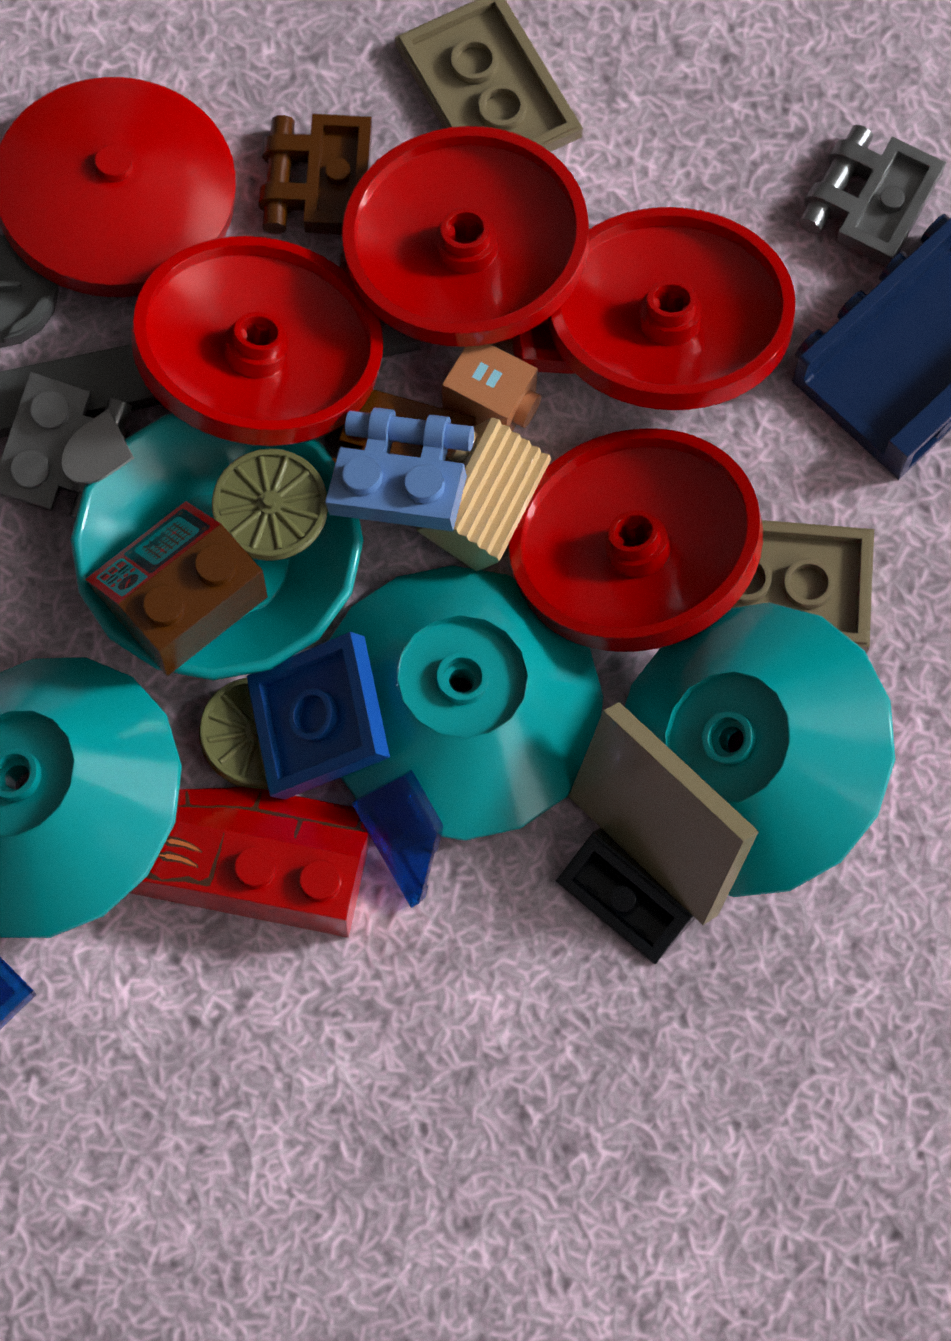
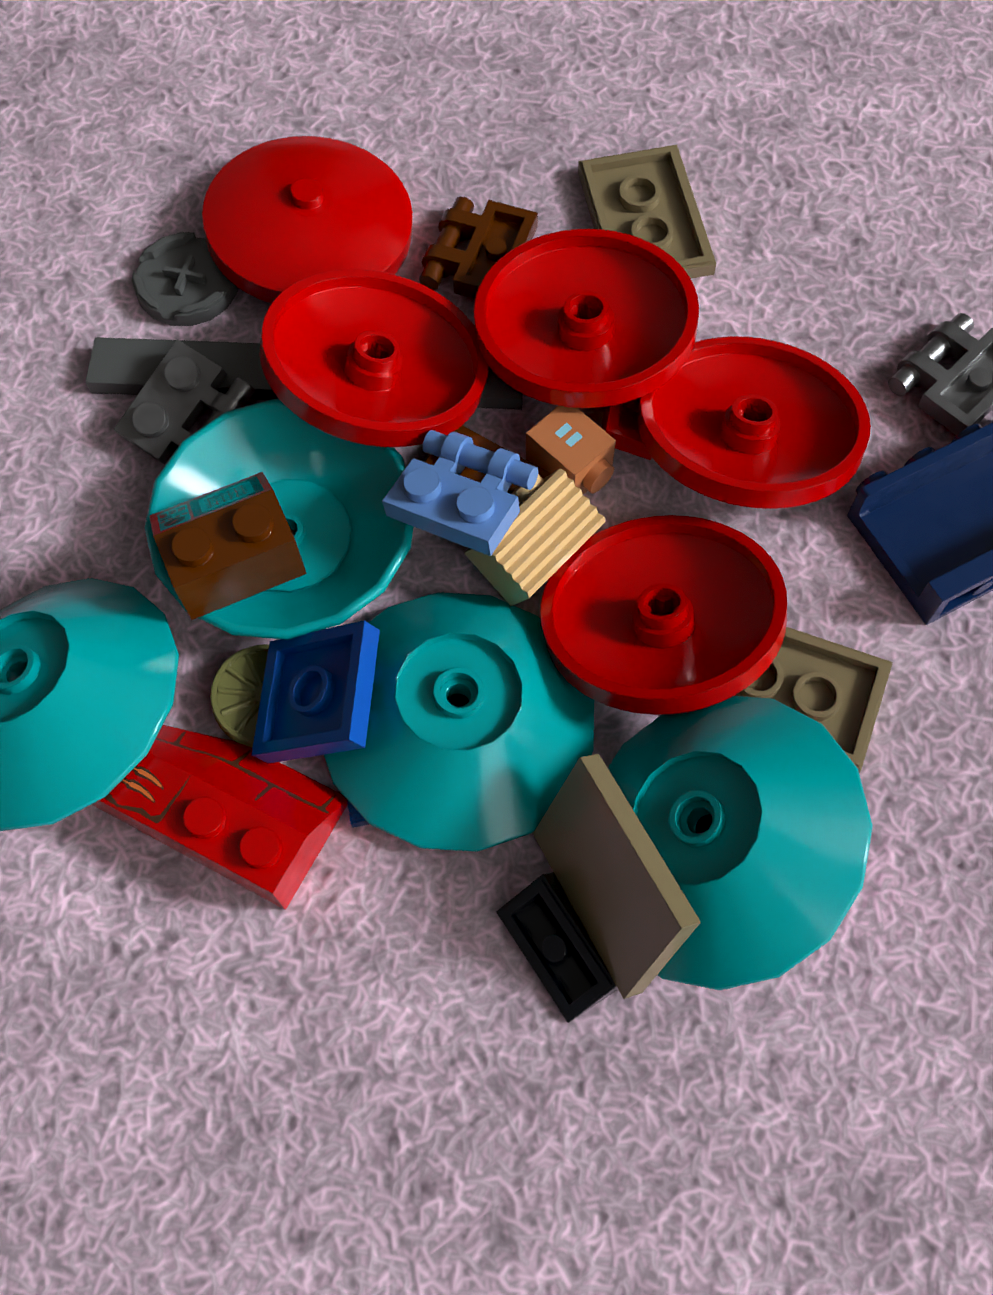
camera: 20 degrees right, 5 degrees down
(95, 451) = (204, 413): light grey piece -> none
(271, 503) = (334, 493): olive wheel -> none
(403, 831) = (362, 823): clear blue tile -> none

